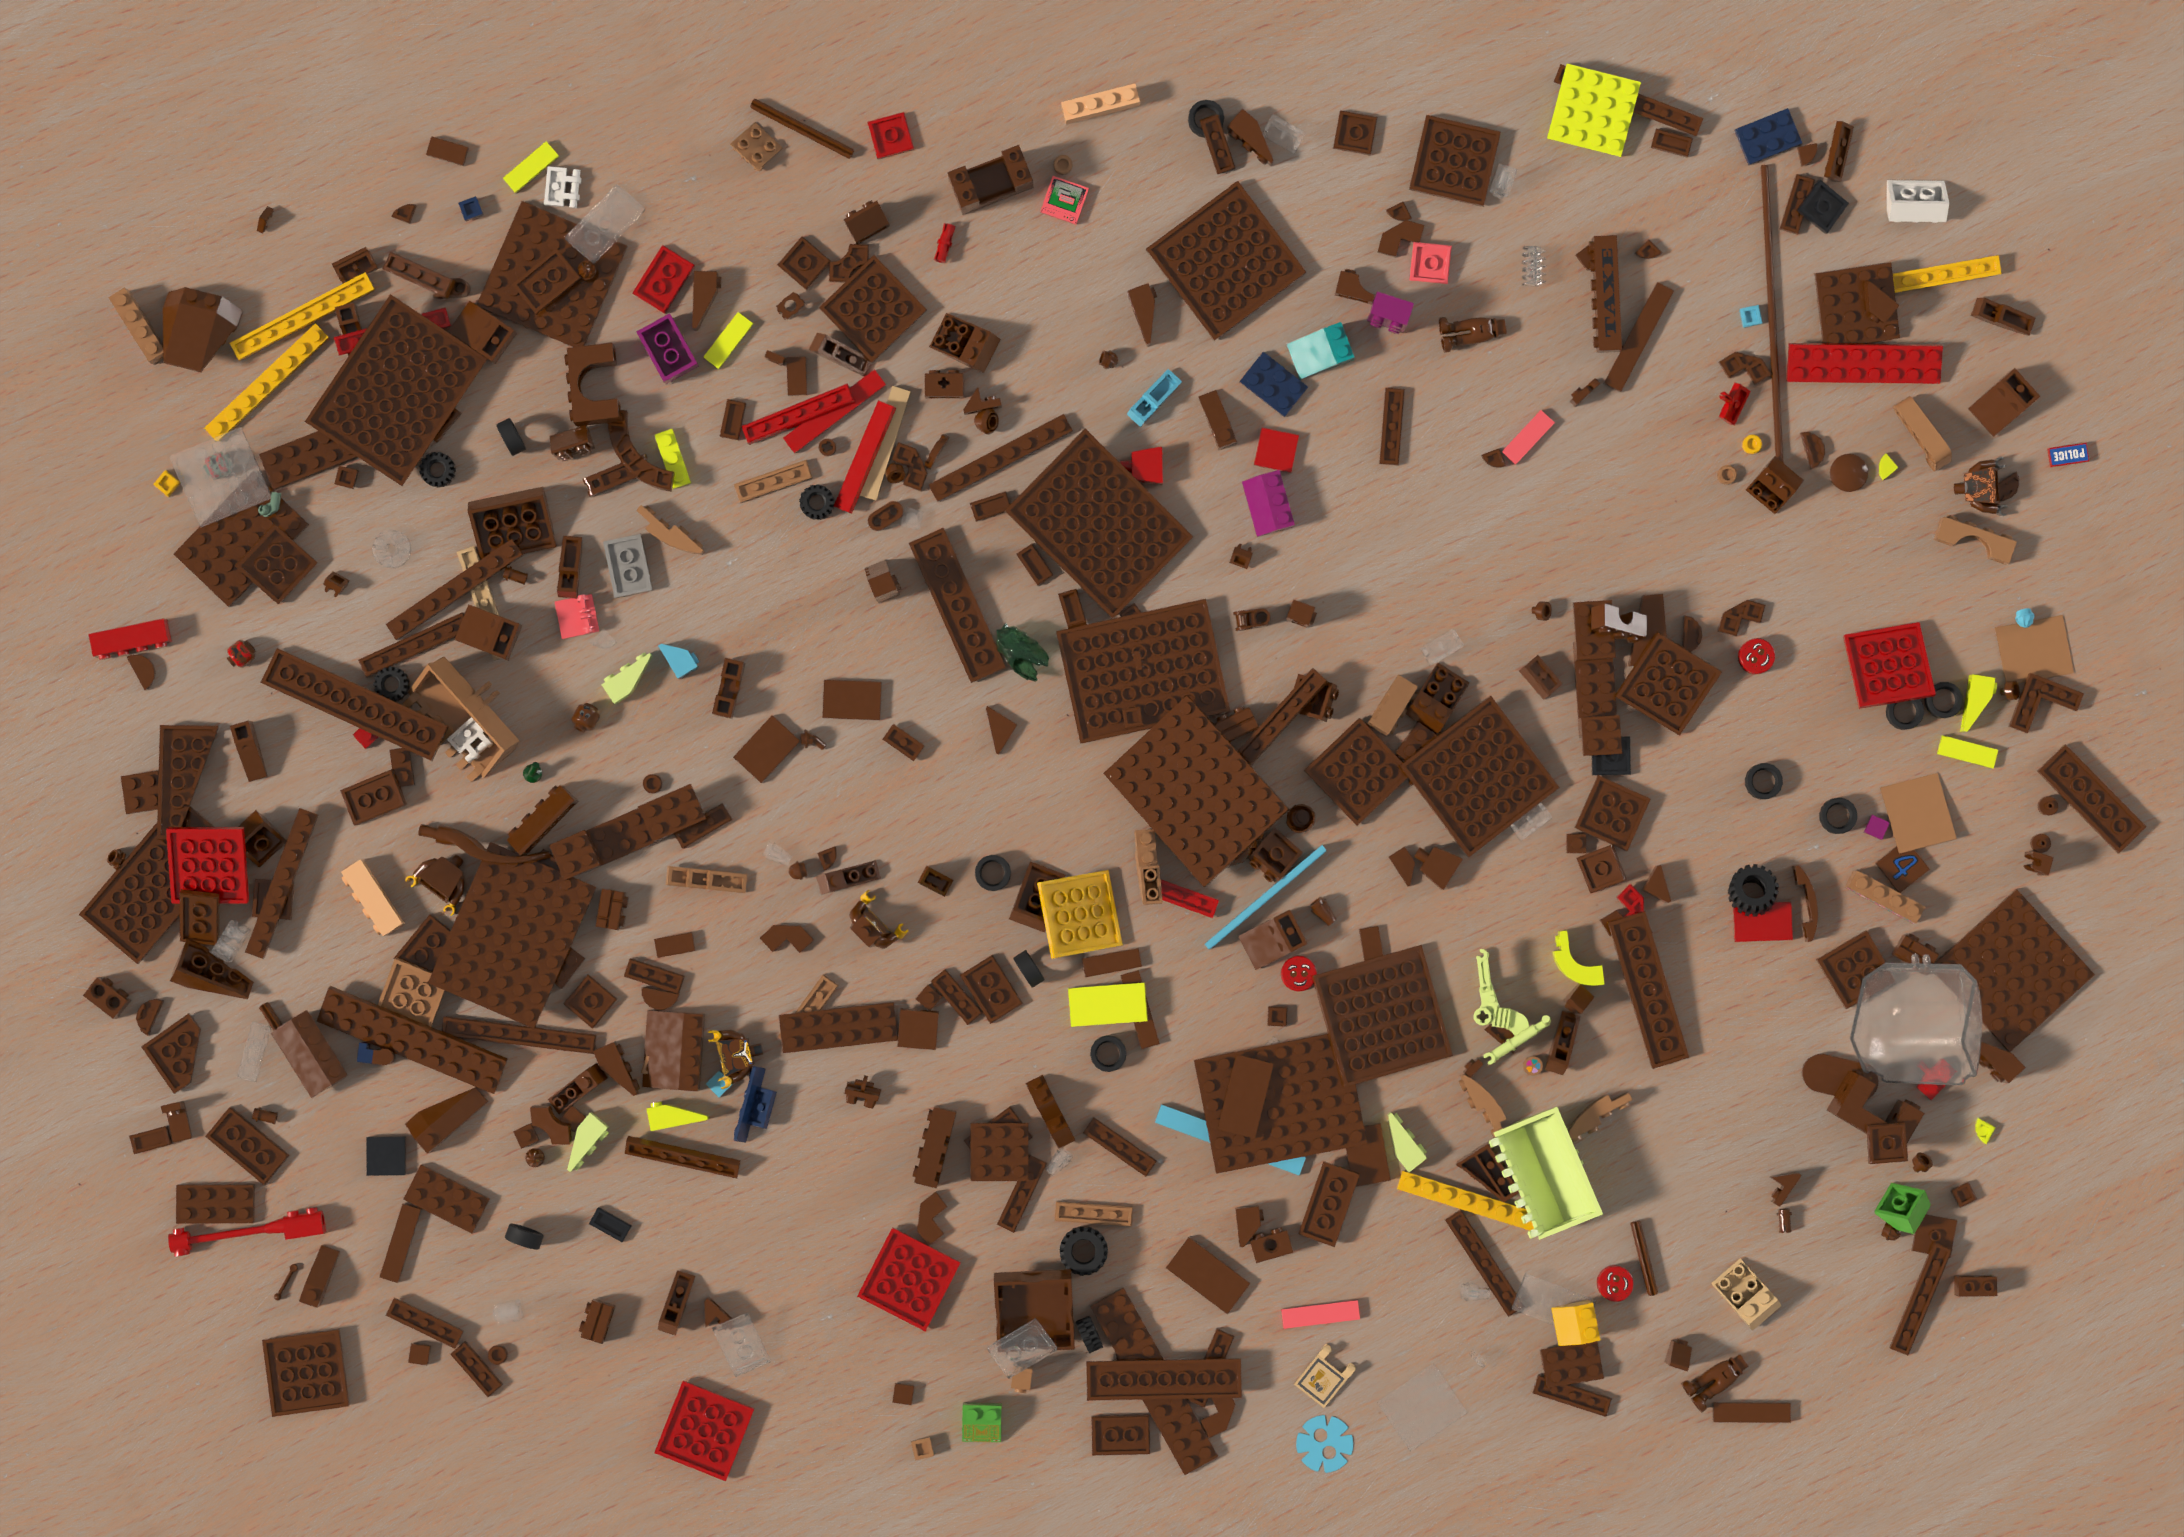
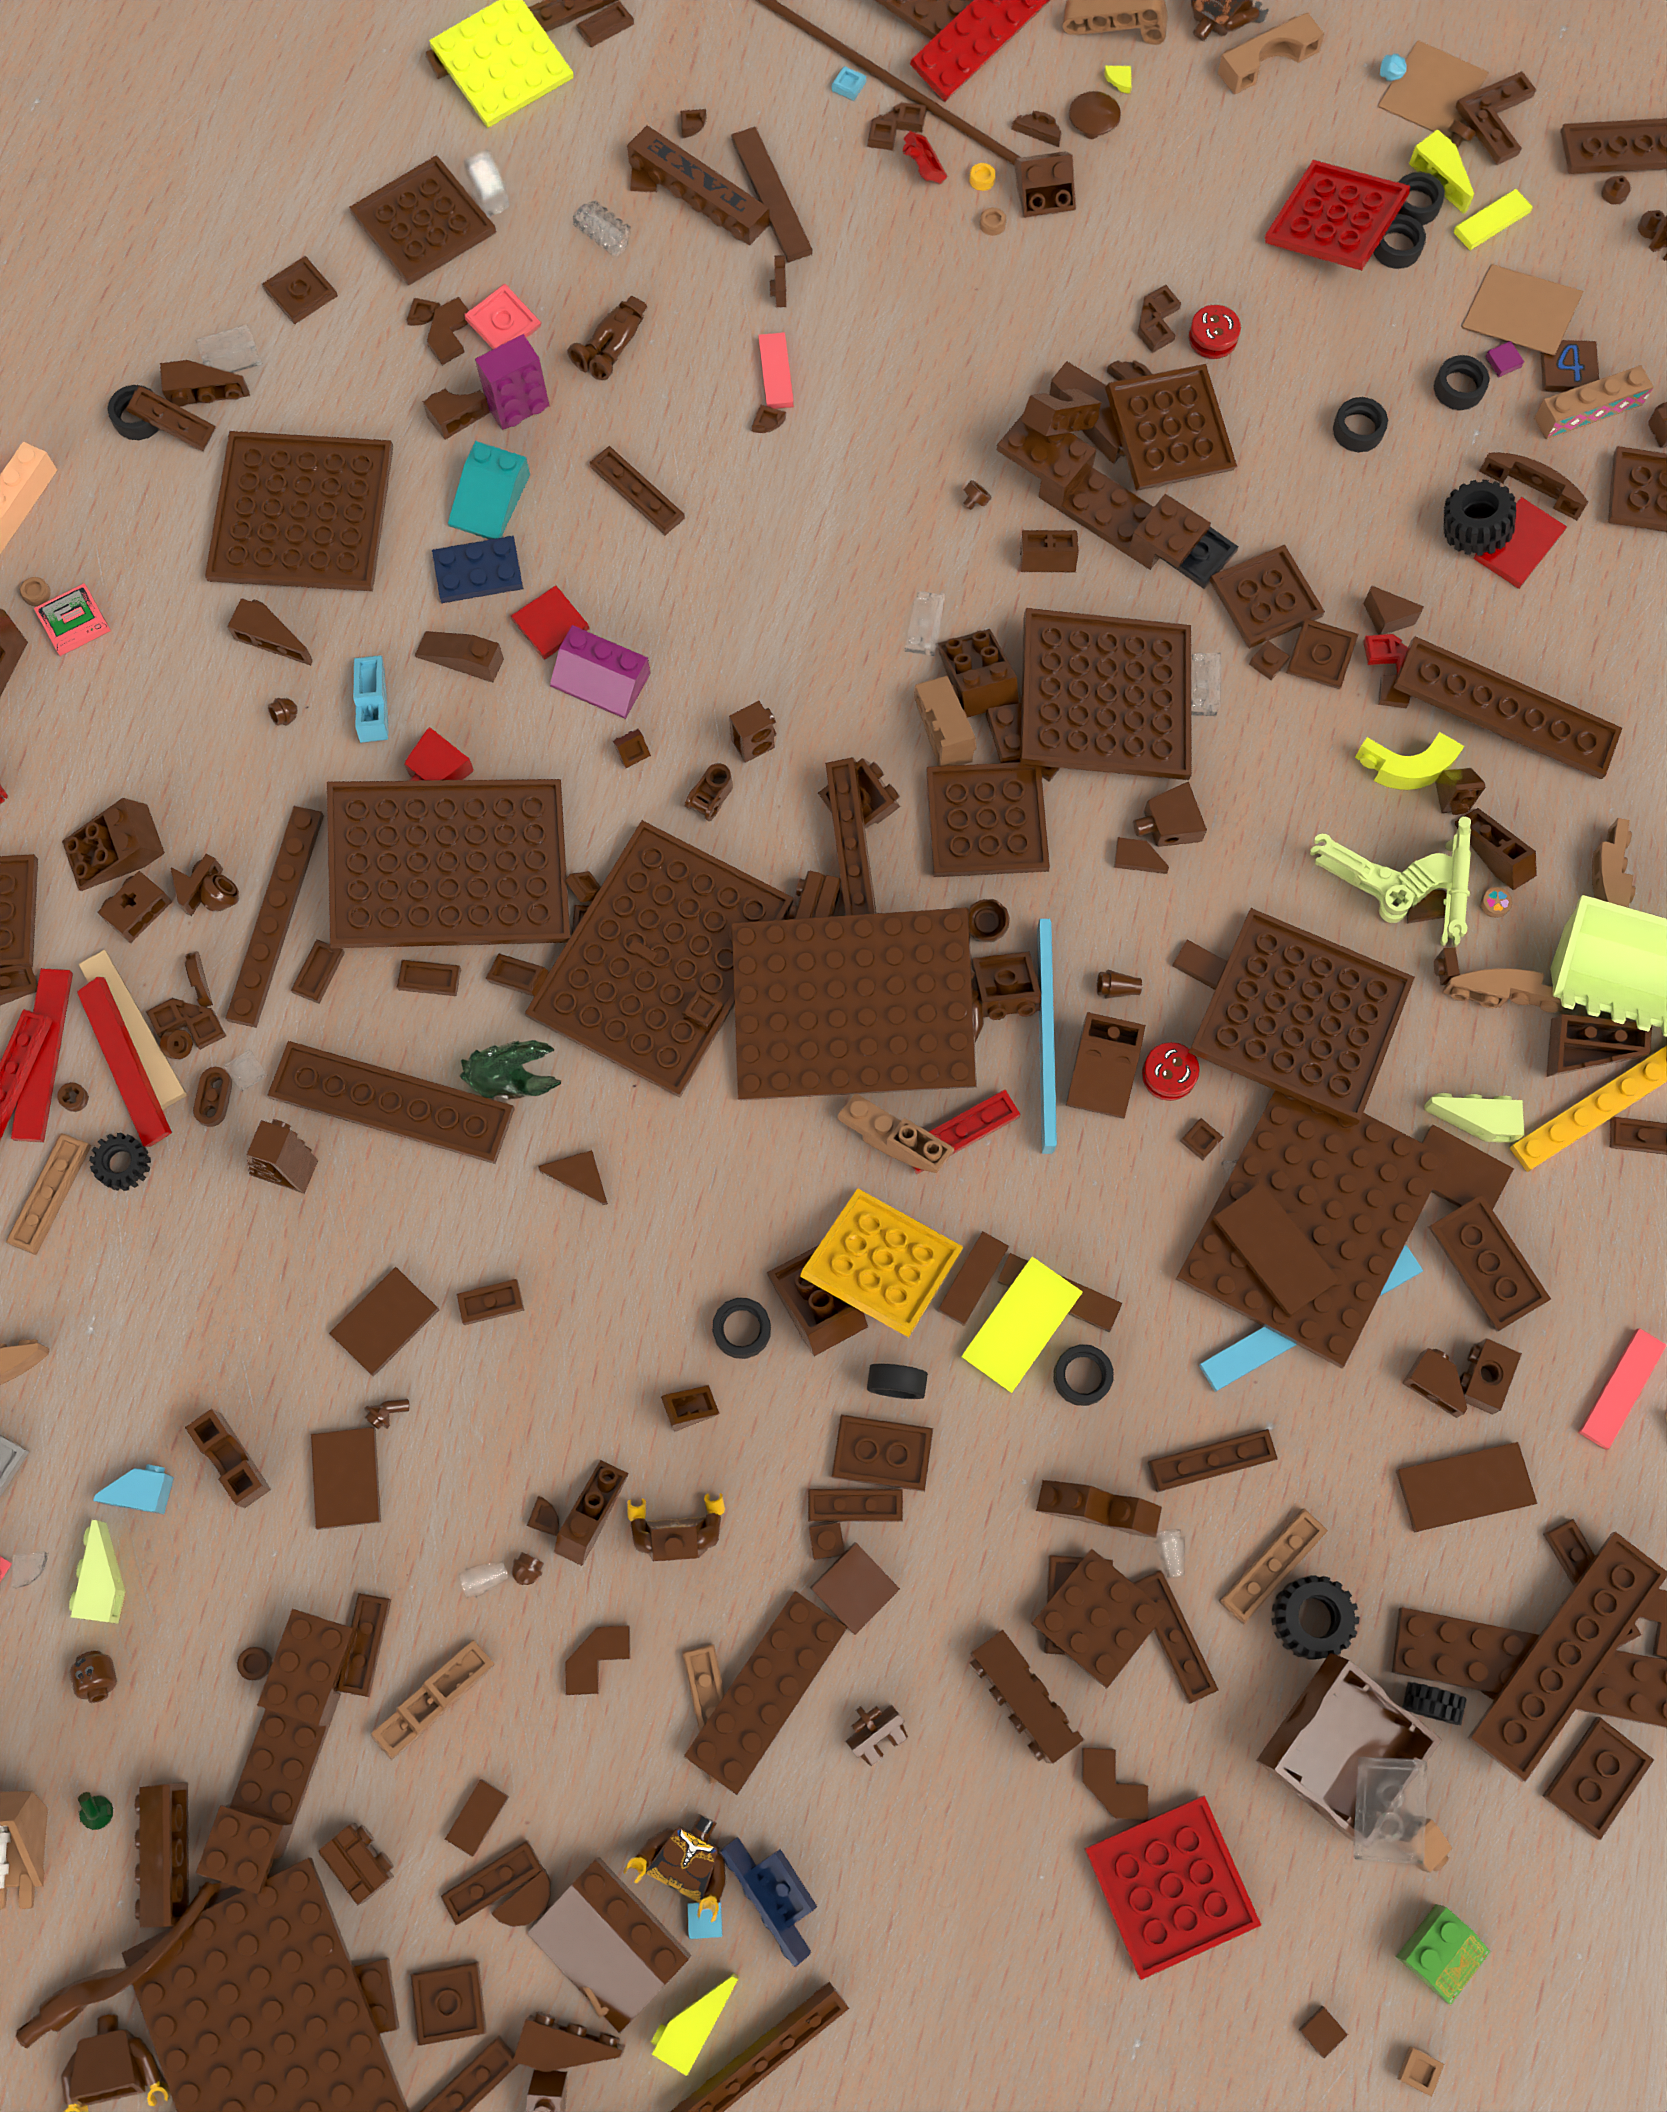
camera: 50 degrees left, 15 degrees down
(1146, 600) = (583, 885): none -> reddish brown tile

